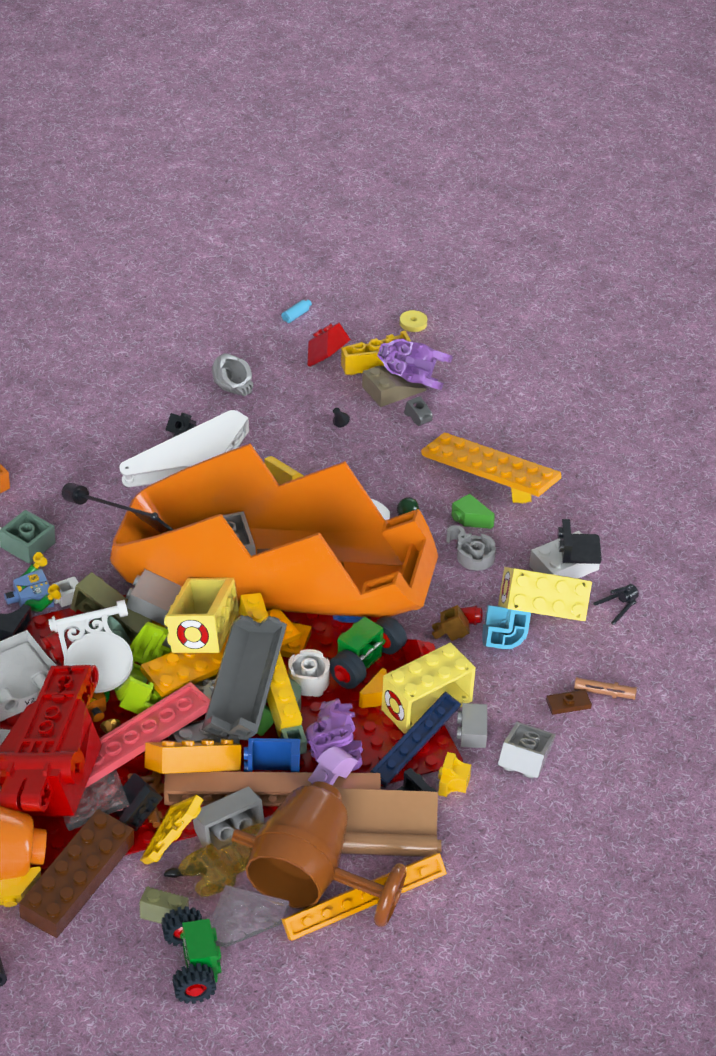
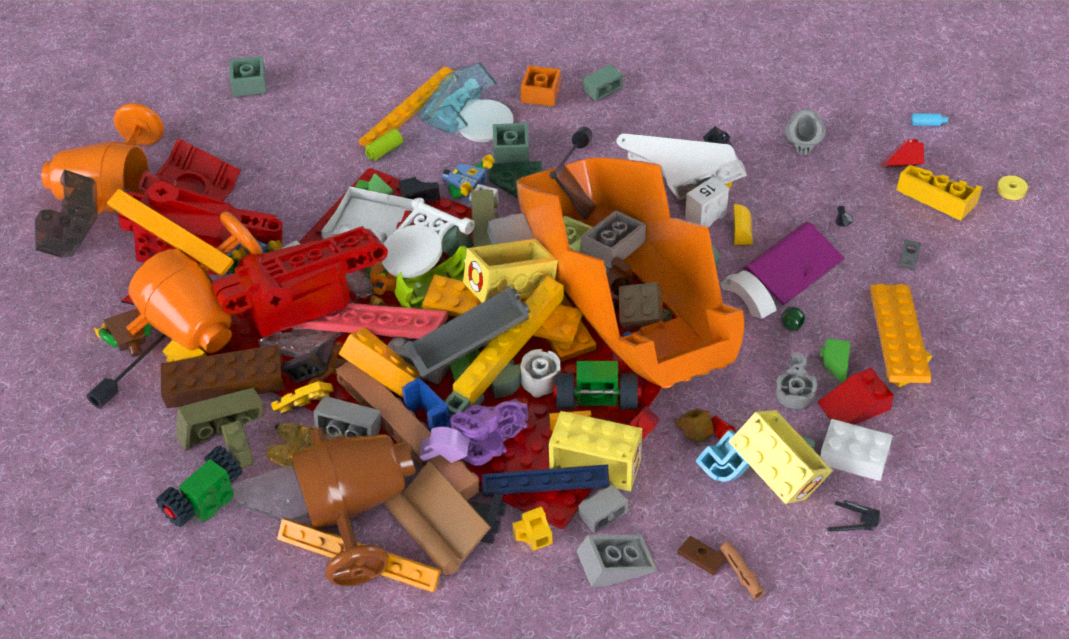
camera: 55 degrees right, 5 degrees up
(26, 442) = (603, 82): none -> sand green brick
(74, 558) = (506, 174): none -> clear green plate
(117, 904) = (205, 418): none -> olive wedge
(362, 460) = (794, 262): none -> magenta door
(388, 387) = (921, 221): dark tan slope -> none
(412, 361) = (948, 215): medium lavender animal -> none
(520, 528) = (858, 398): none -> red slope
(578, 547) = (862, 443): black bracket -> none

